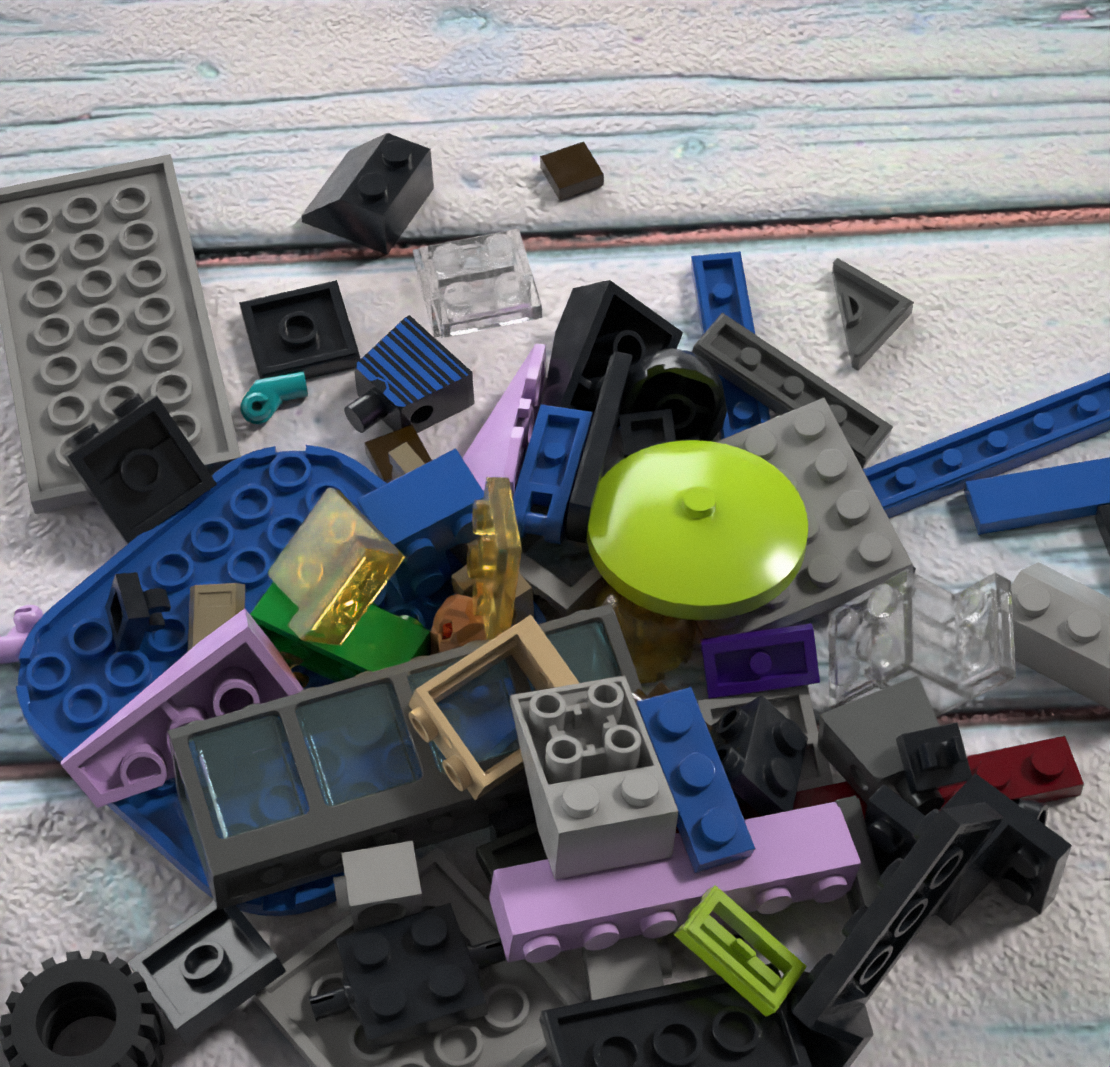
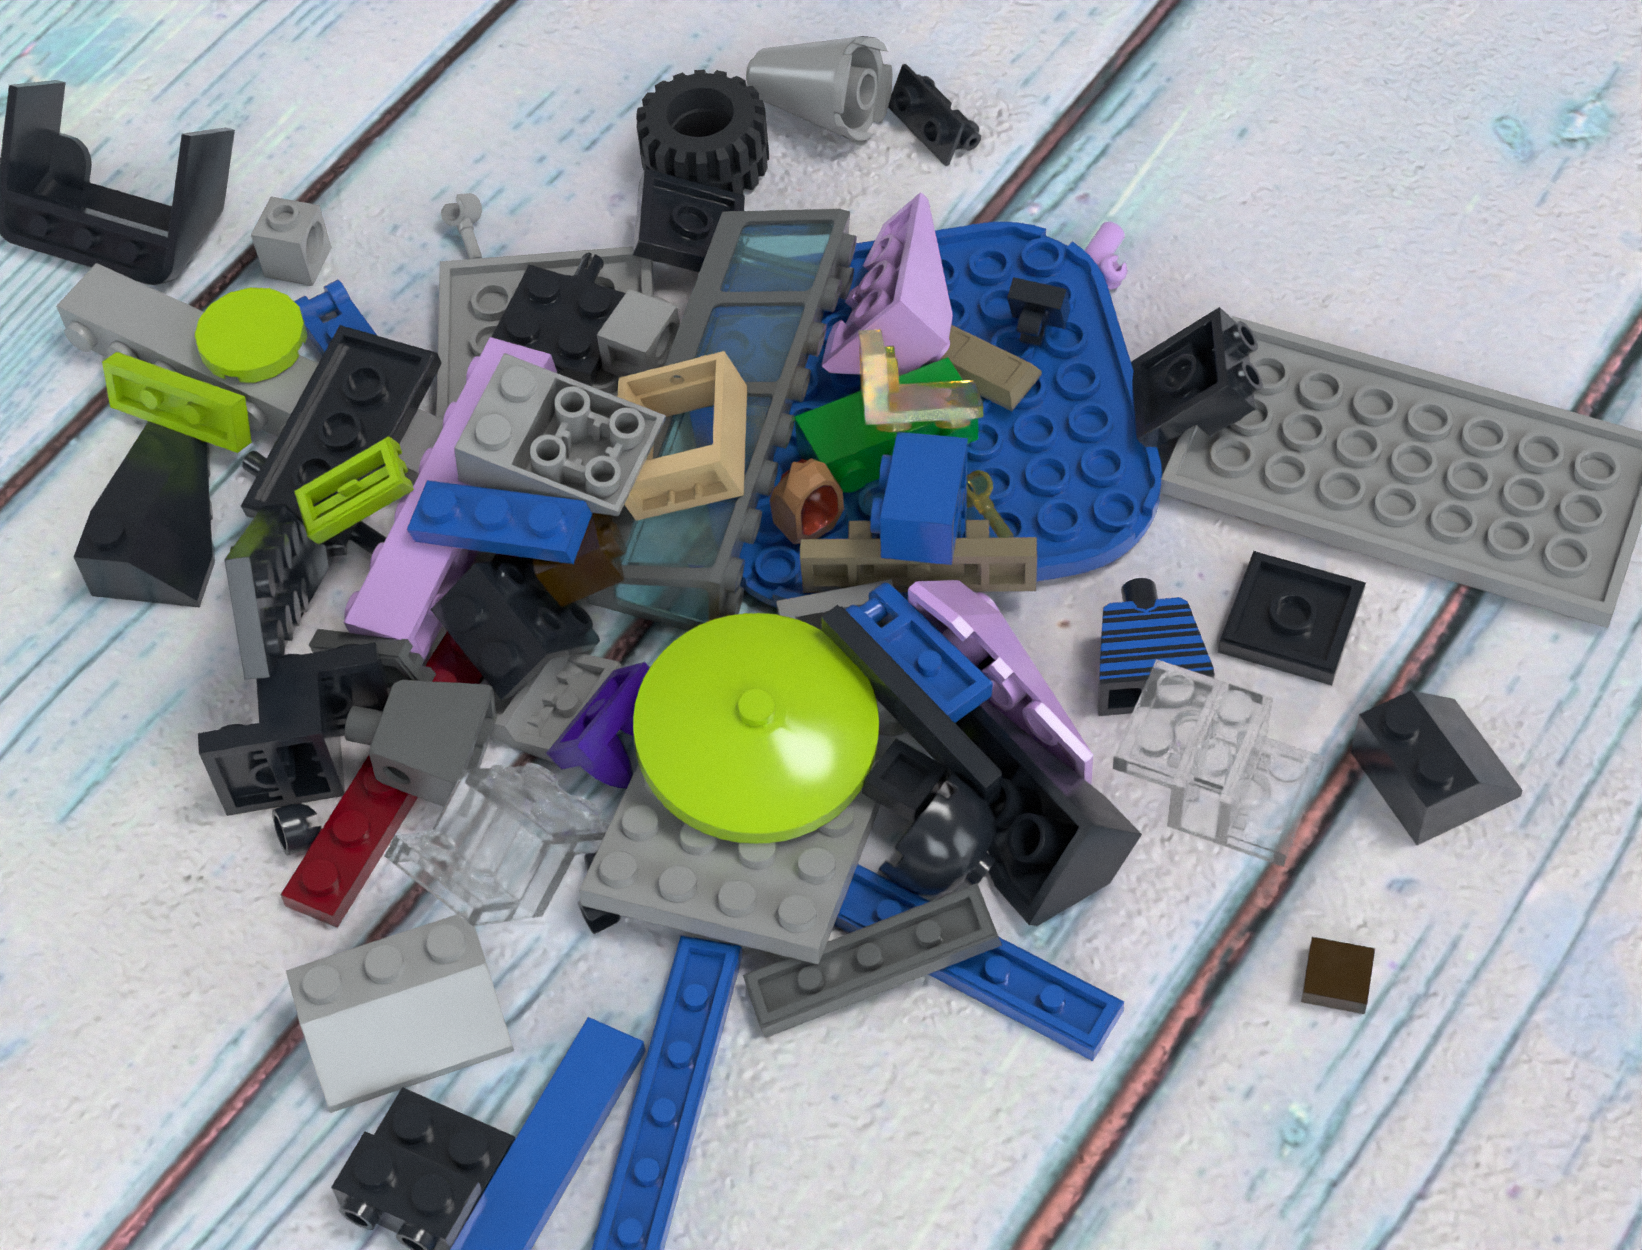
camera: 130 degrees right, 0 degrees up
(269, 393) = (1230, 550): teal arm -> none
(378, 449) = (1074, 611): dark brown tile -> none
(496, 556) = (807, 484): clear yellow plate -> none
(867, 311) = (925, 1126): dark grey tile -> none
(934, 758) = (366, 722): black tile -> none

